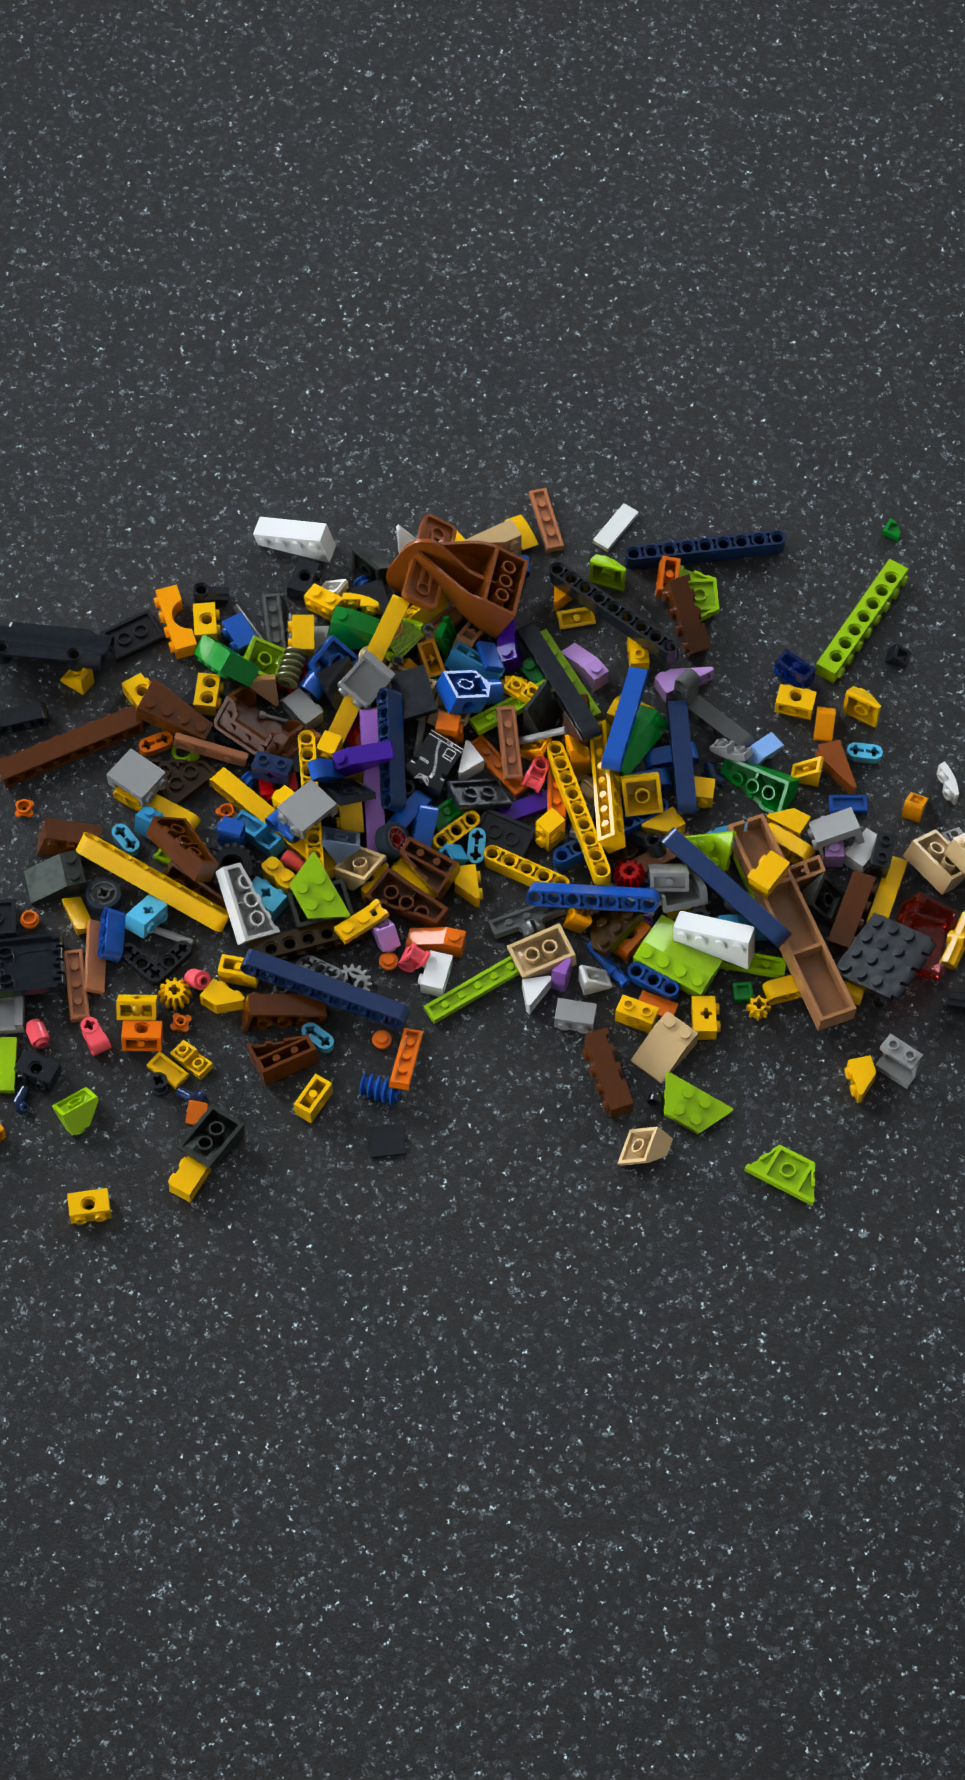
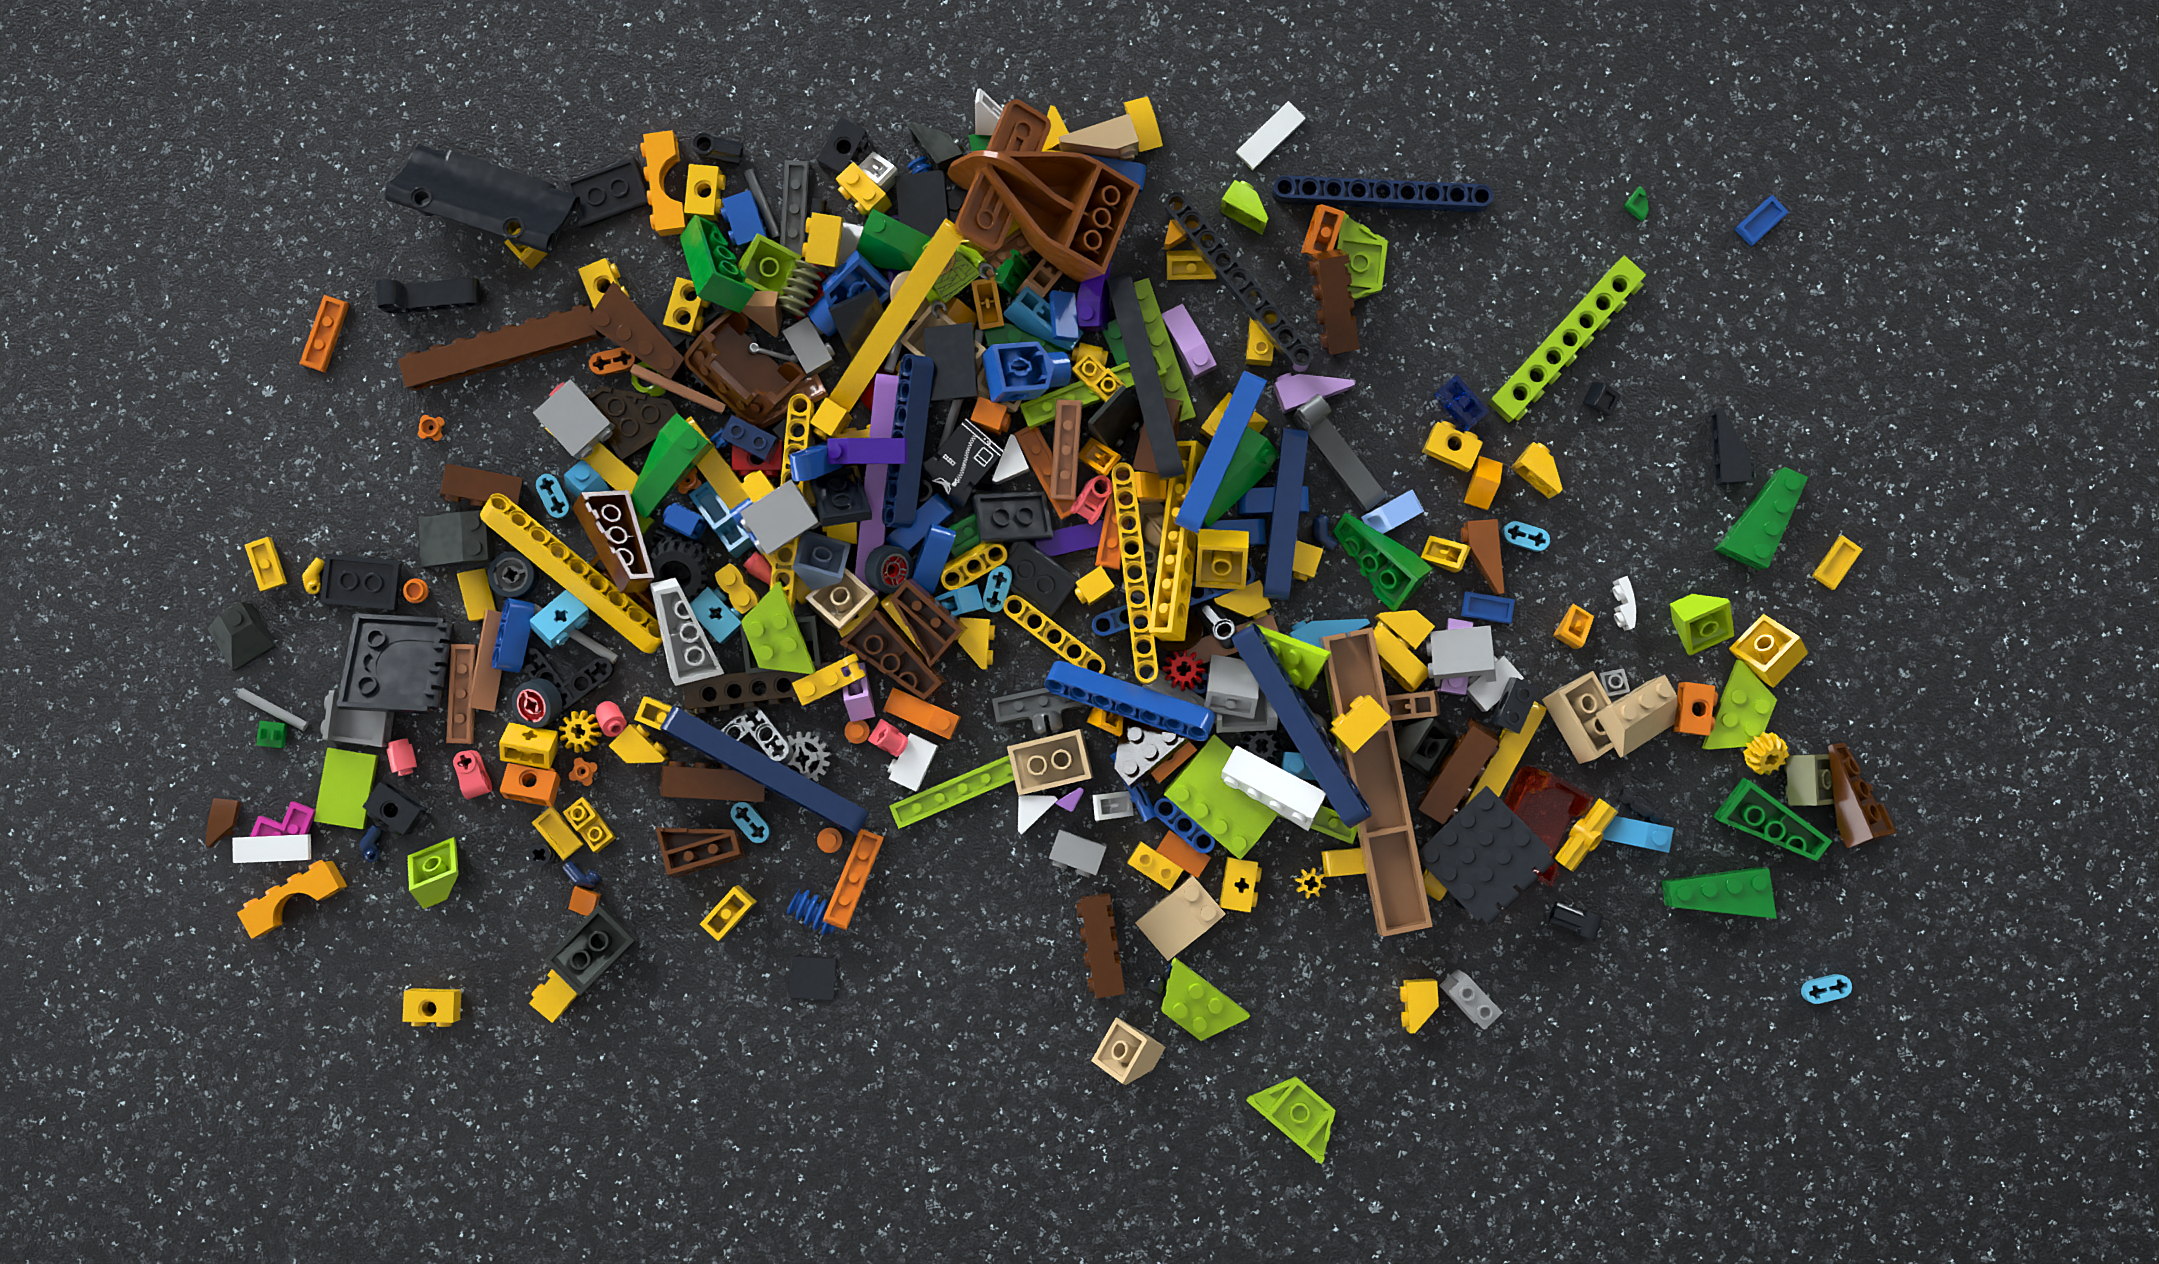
camera: 15 degrees right, 25 degrees up
(147, 979) = (547, 699): none -> black wheel
(213, 795) = (669, 462): none -> green wedge
(296, 537) = (841, 82): white wedge -> none
(365, 680) = (889, 336): light grey panel -> none
(368, 605) = (913, 209): yellow slope -> none
(543, 735) = (1110, 450): light grey bar -> none
(546, 520) = (1180, 108): nougat tile -> none
(728, 750) = (1347, 508): light grey slope -> none
(742, 991) = (1295, 853): green tile -> none

